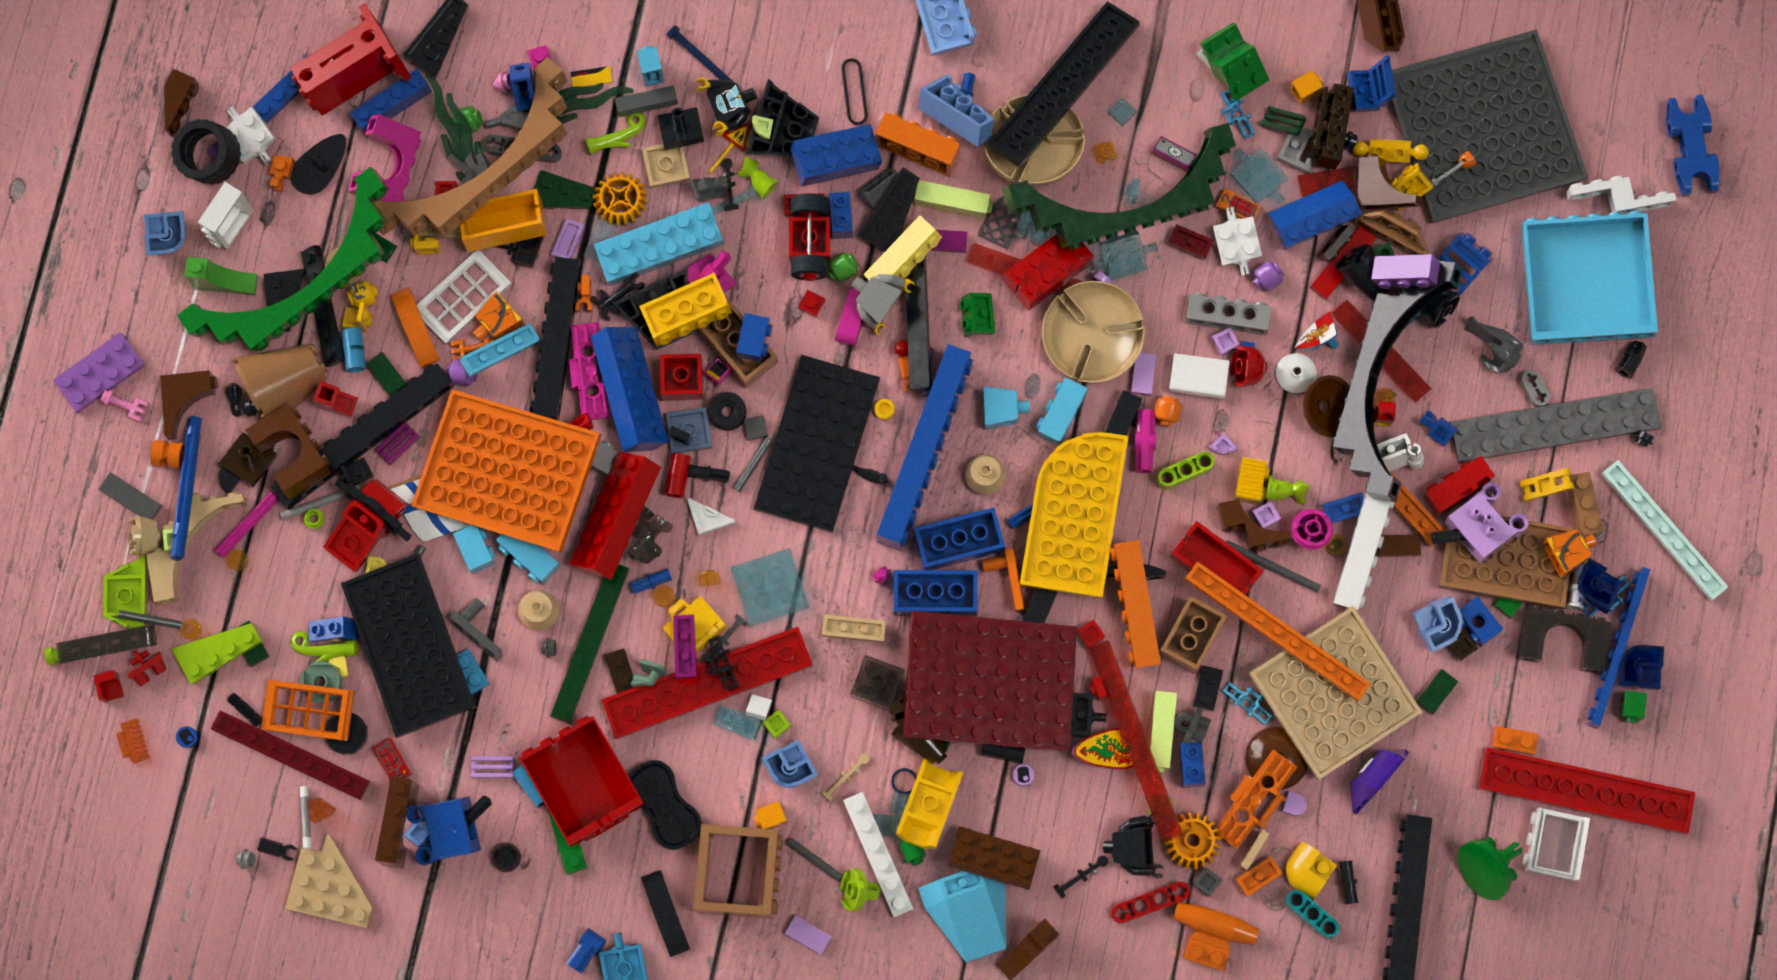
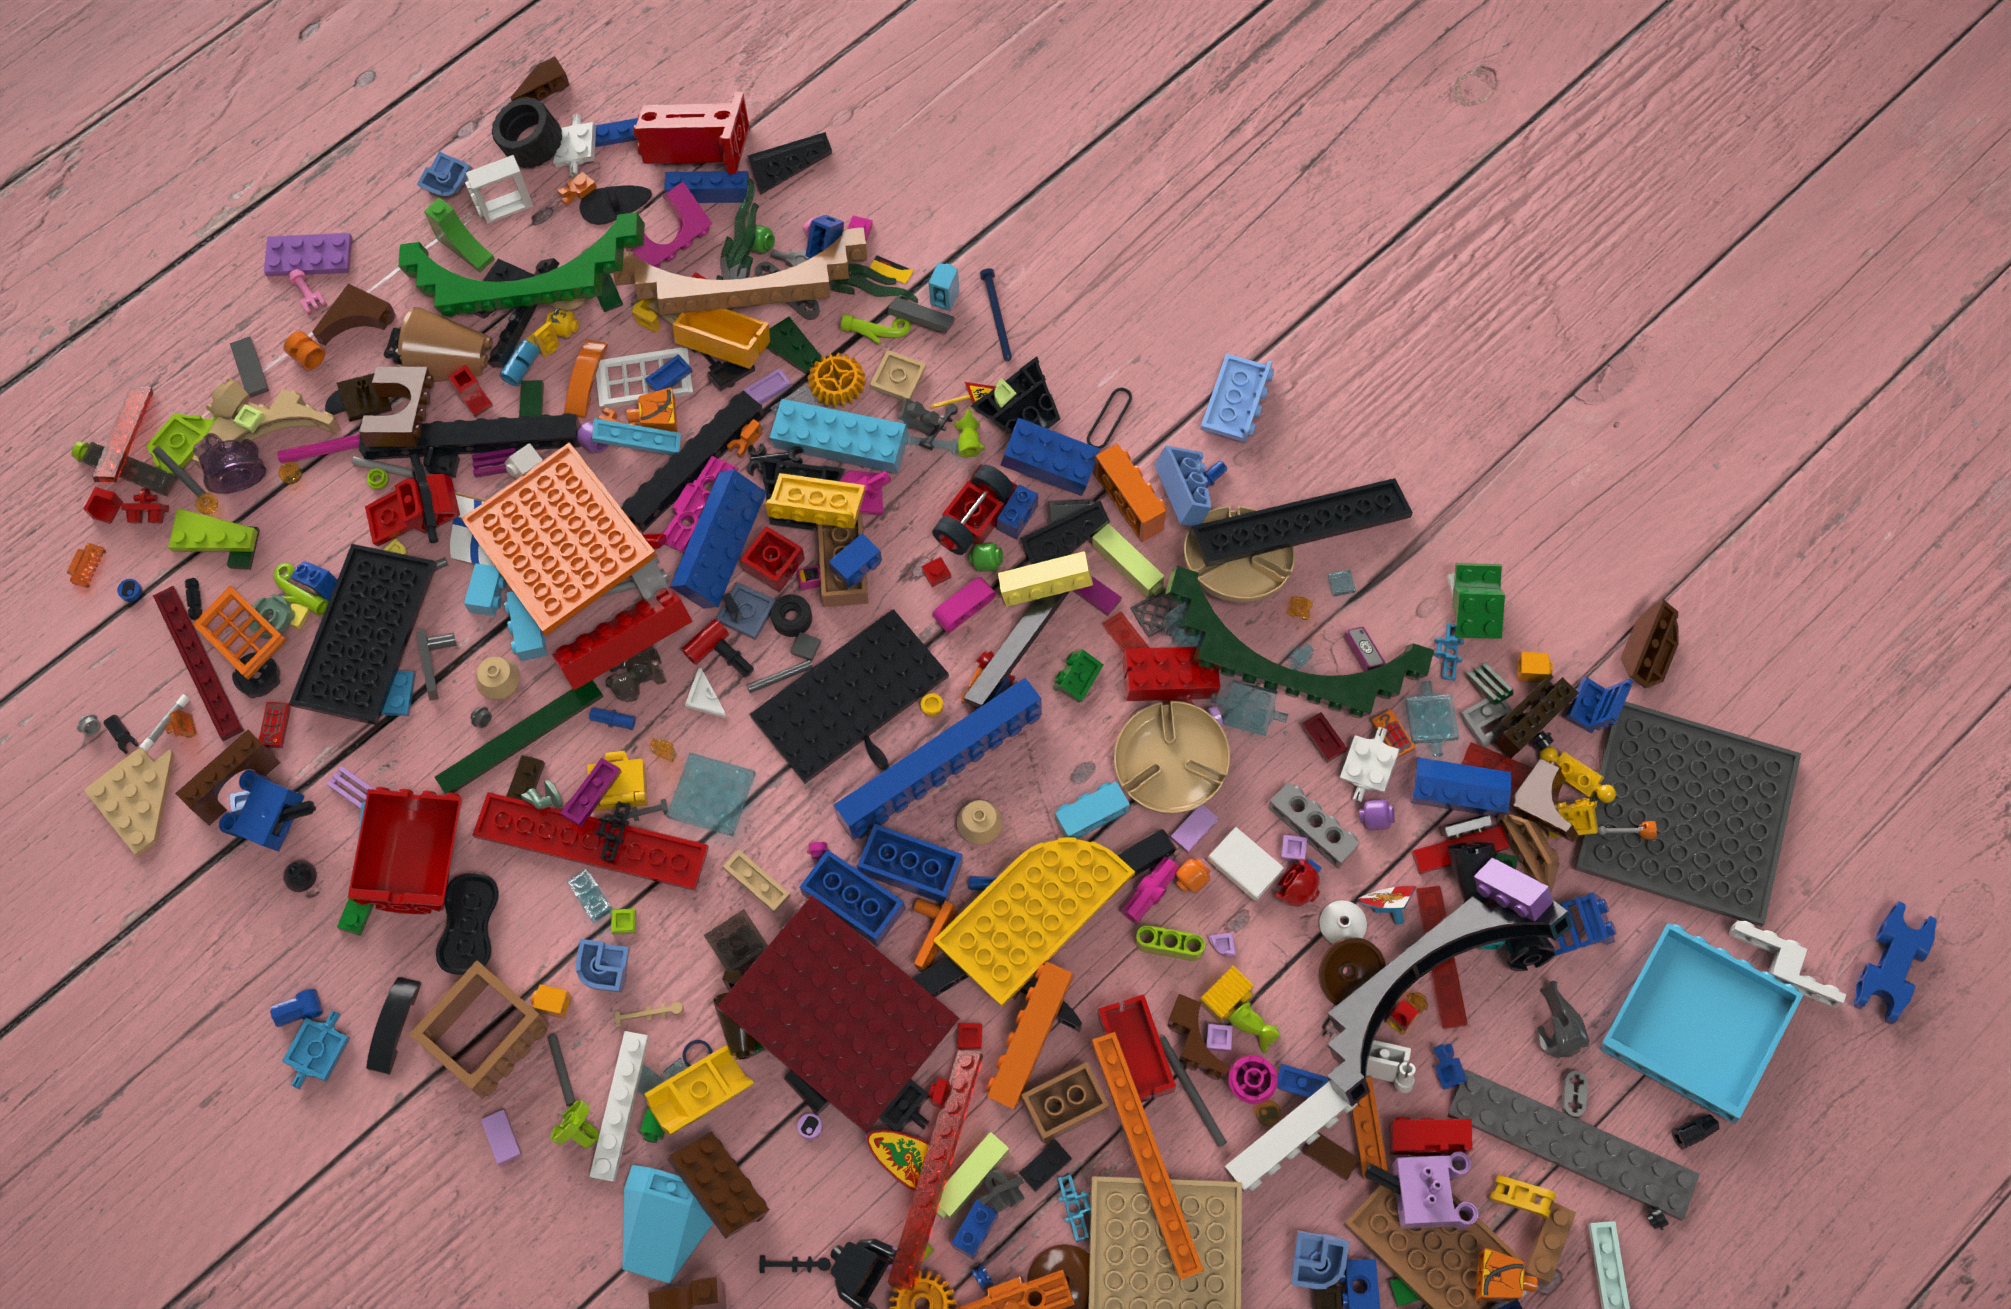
camera: 35 degrees right, 10 degrees down
(81, 619) = (122, 434): none -> clear red tile
(186, 487) = (291, 383): blue piece -> none
(191, 584) = (229, 464): none -> clear purple piece
(424, 428) = (522, 461): none -> white brick
(483, 281) = (669, 374): none -> blue tile
(664, 596) = (614, 740): clear yellow tile -> none
(680, 128) = (932, 353): black tile -> none
(728, 103) = (988, 357): black torso -> none
(758, 707) = (618, 894): white tile -> none
(878, 297) = (994, 598): light grey torso -> none
(1002, 407) = (1038, 772): medium azure torso -> none
(1218, 793) = (981, 1277): none -> blue bush

